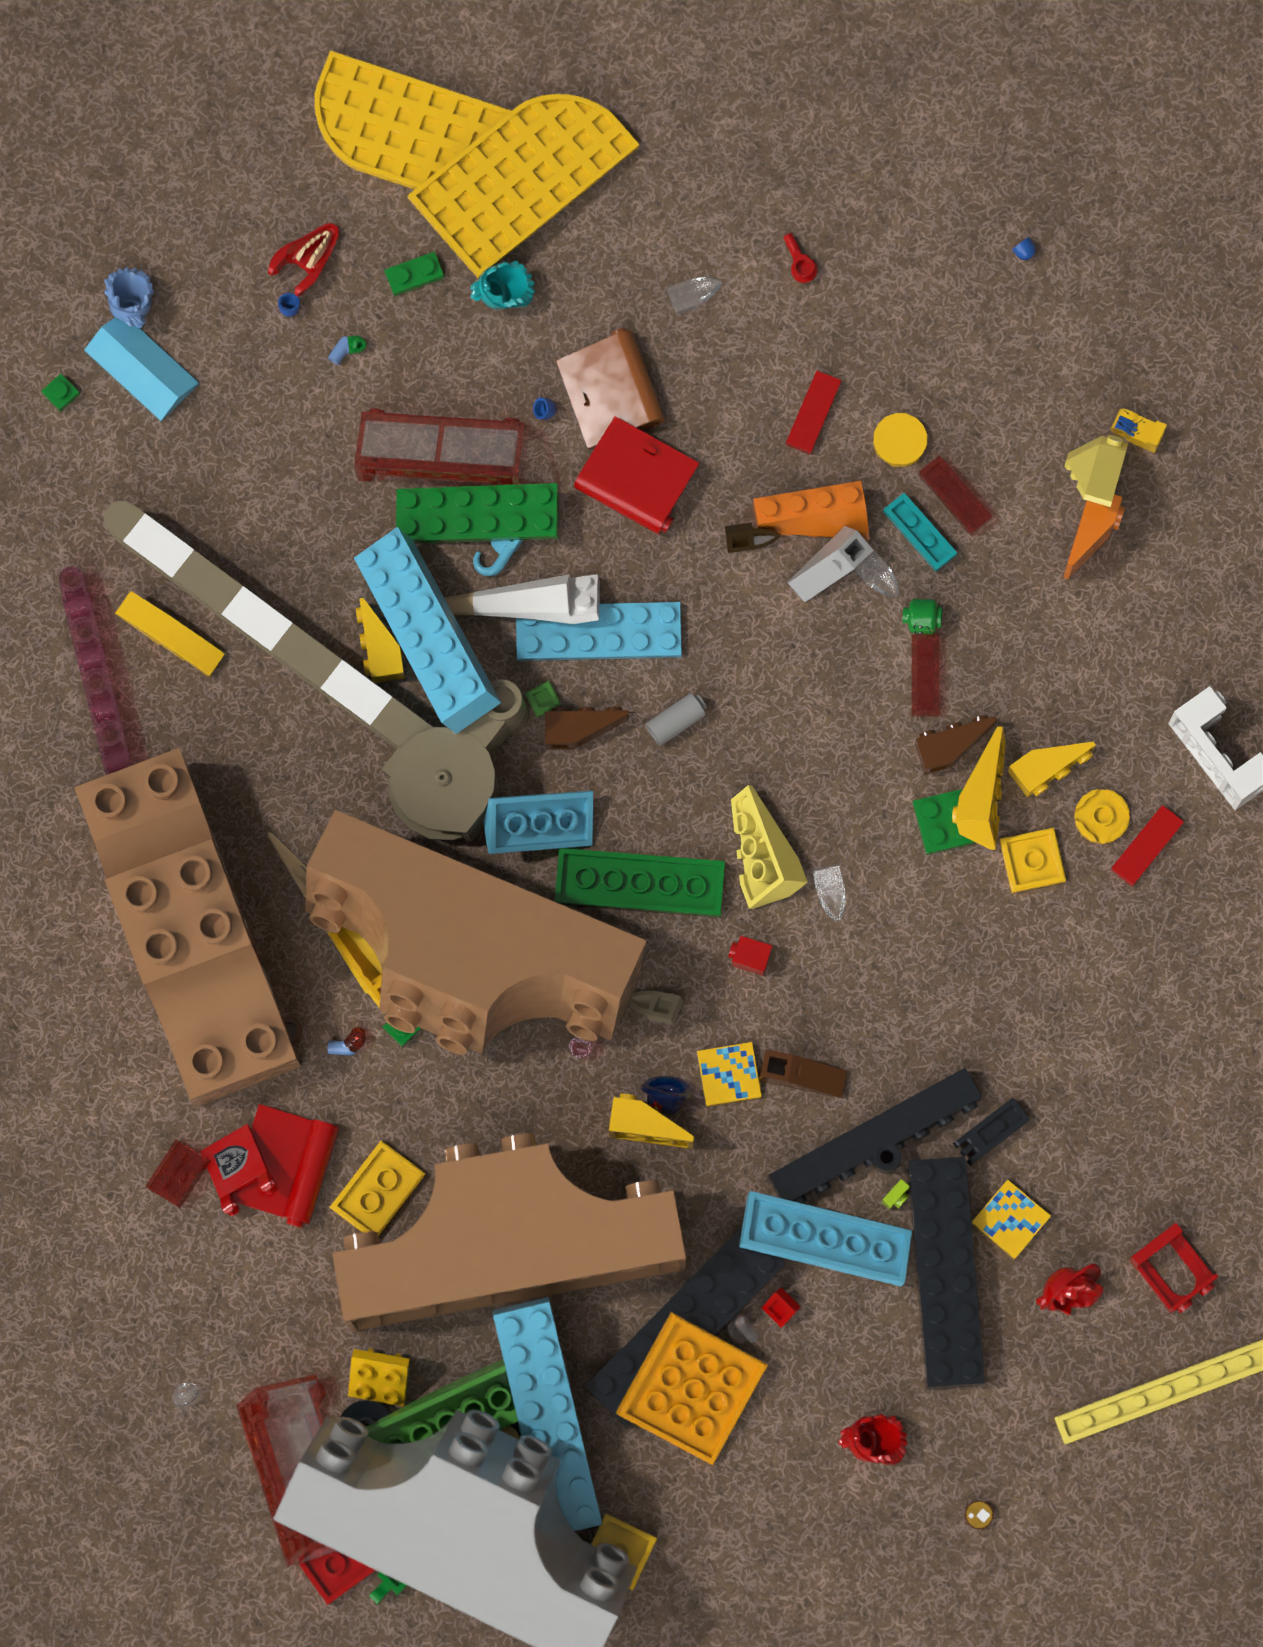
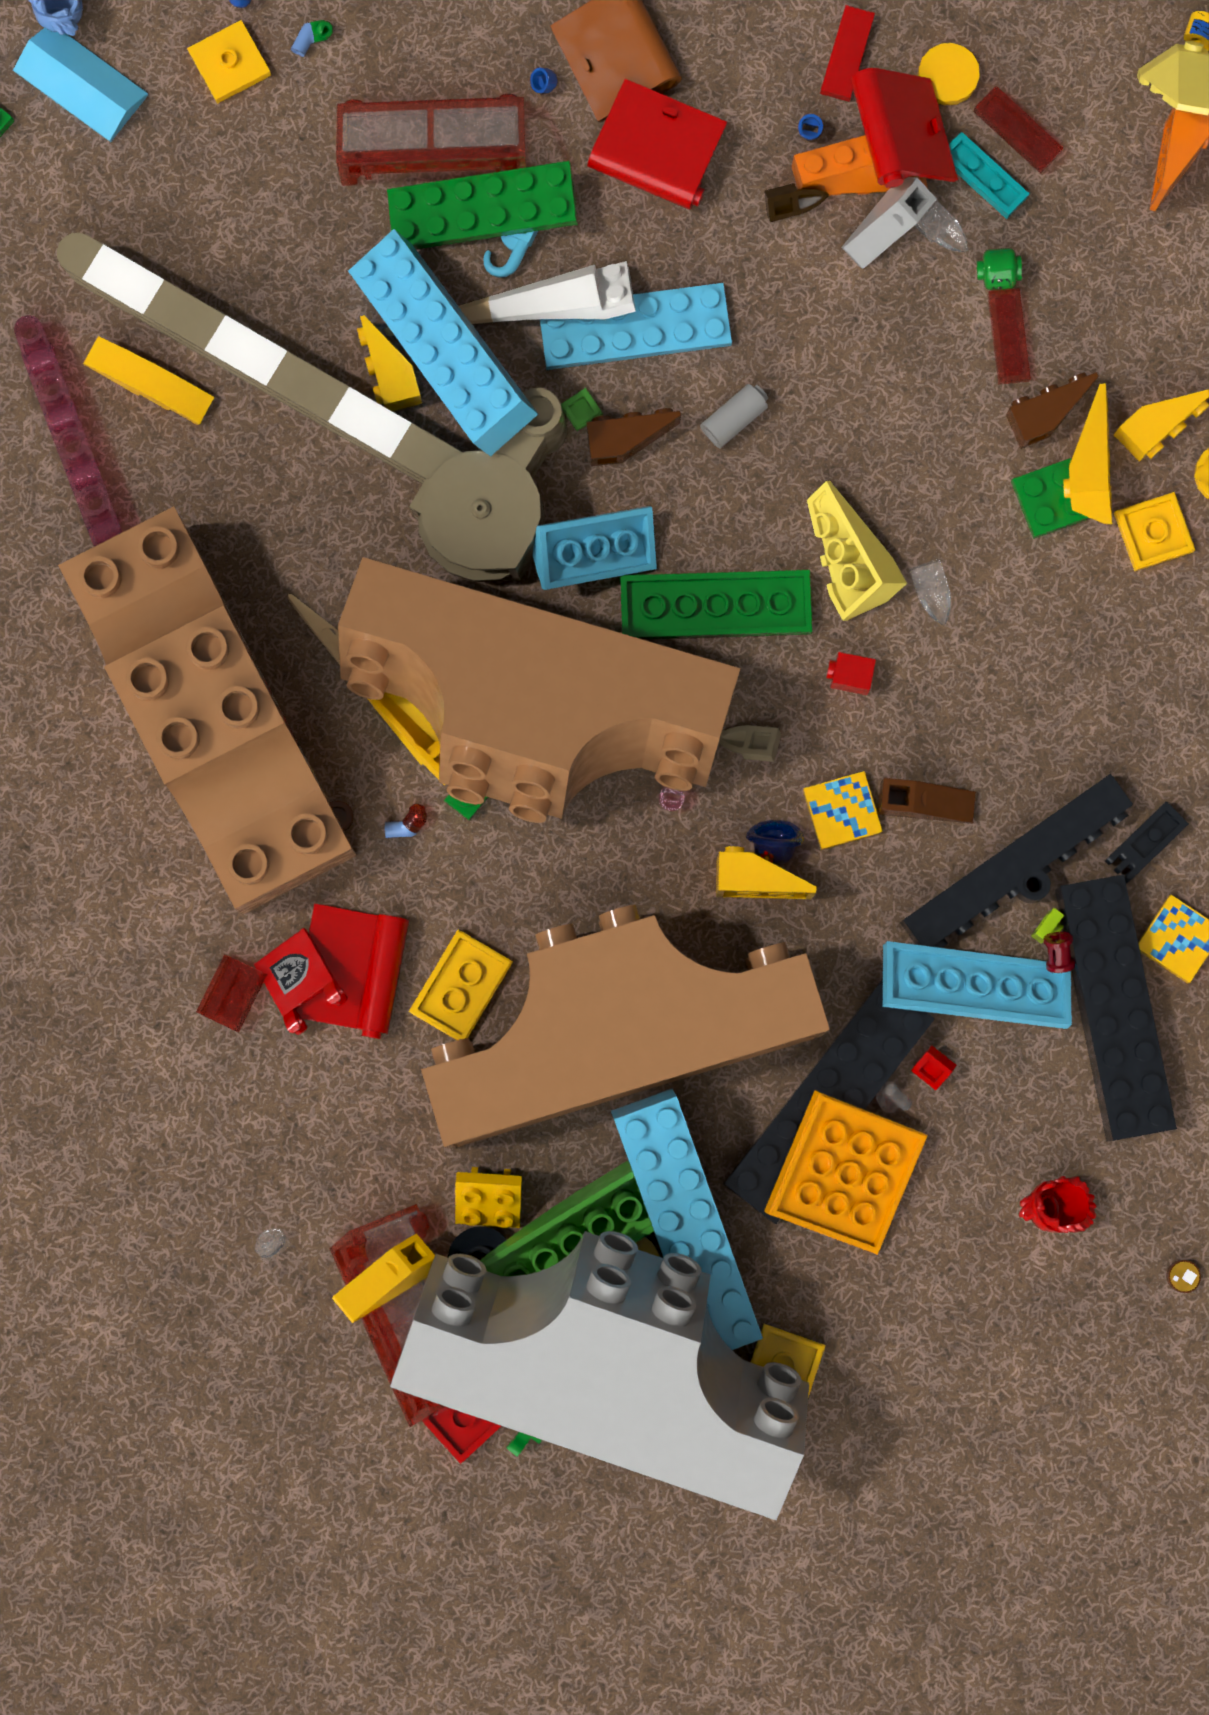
camera: 10 degrees left, 5 degrees up
(272, 362) = (229, 61): none -> yellow plate
(282, 1433) = (386, 1278): none -> yellow slope
(773, 468) = (810, 120): none -> blue hinge
(851, 485) = (902, 126): none -> red door
(900, 1218) = (1059, 952): none -> dark red bush

